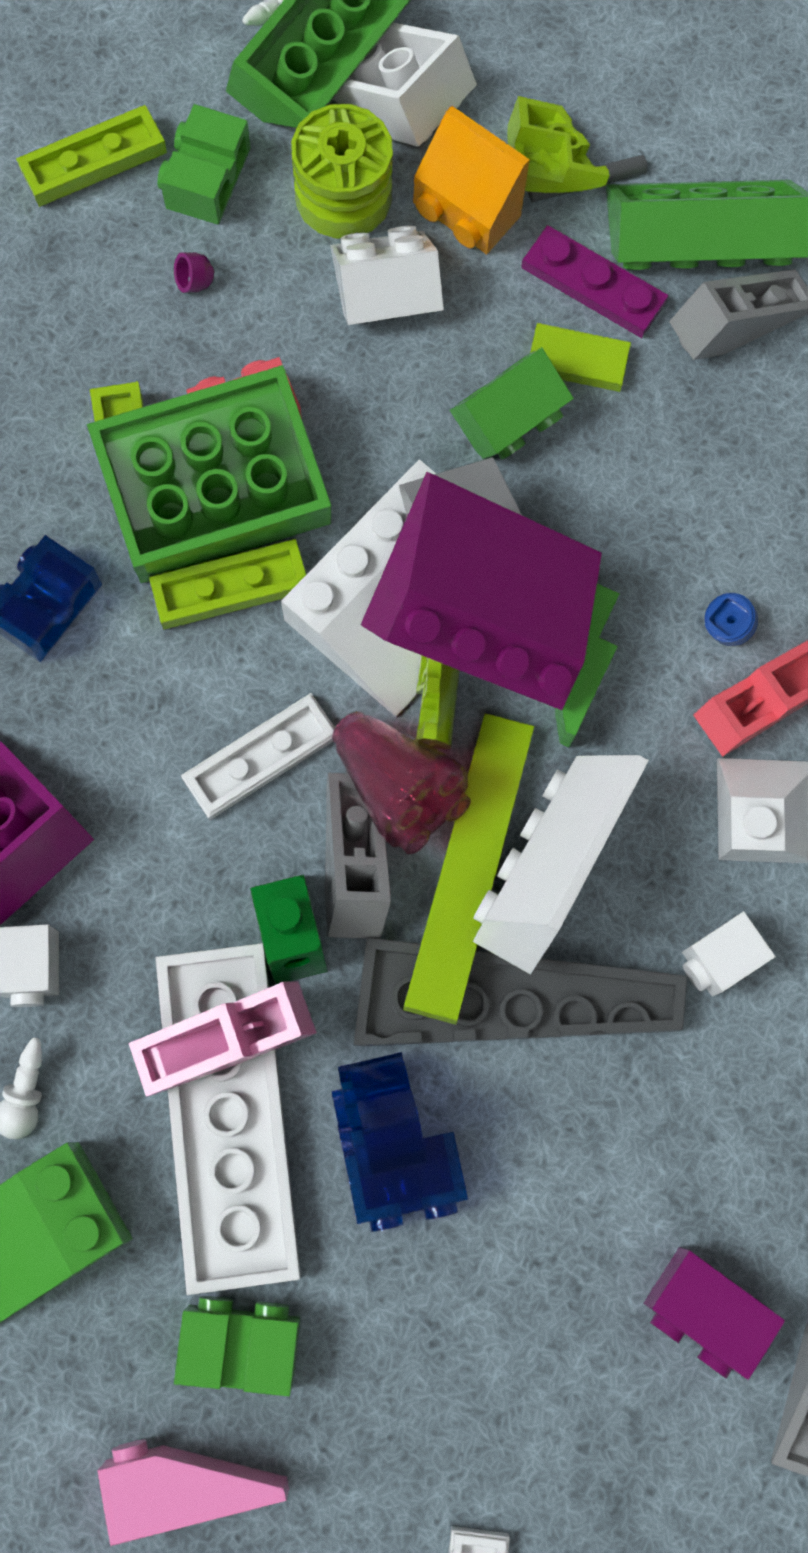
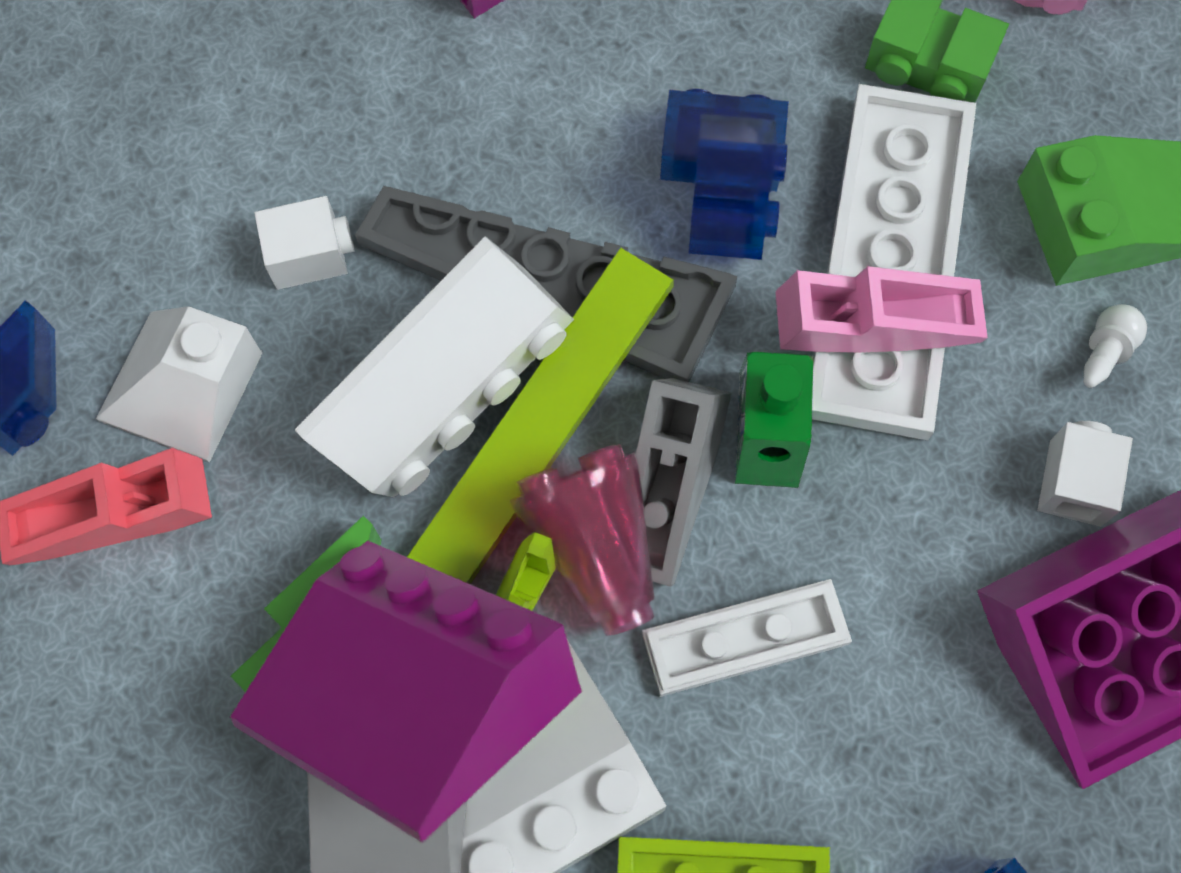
camera: 155 degrees left, 5 degrees down
(731, 619) = (108, 615): blue tile -> none

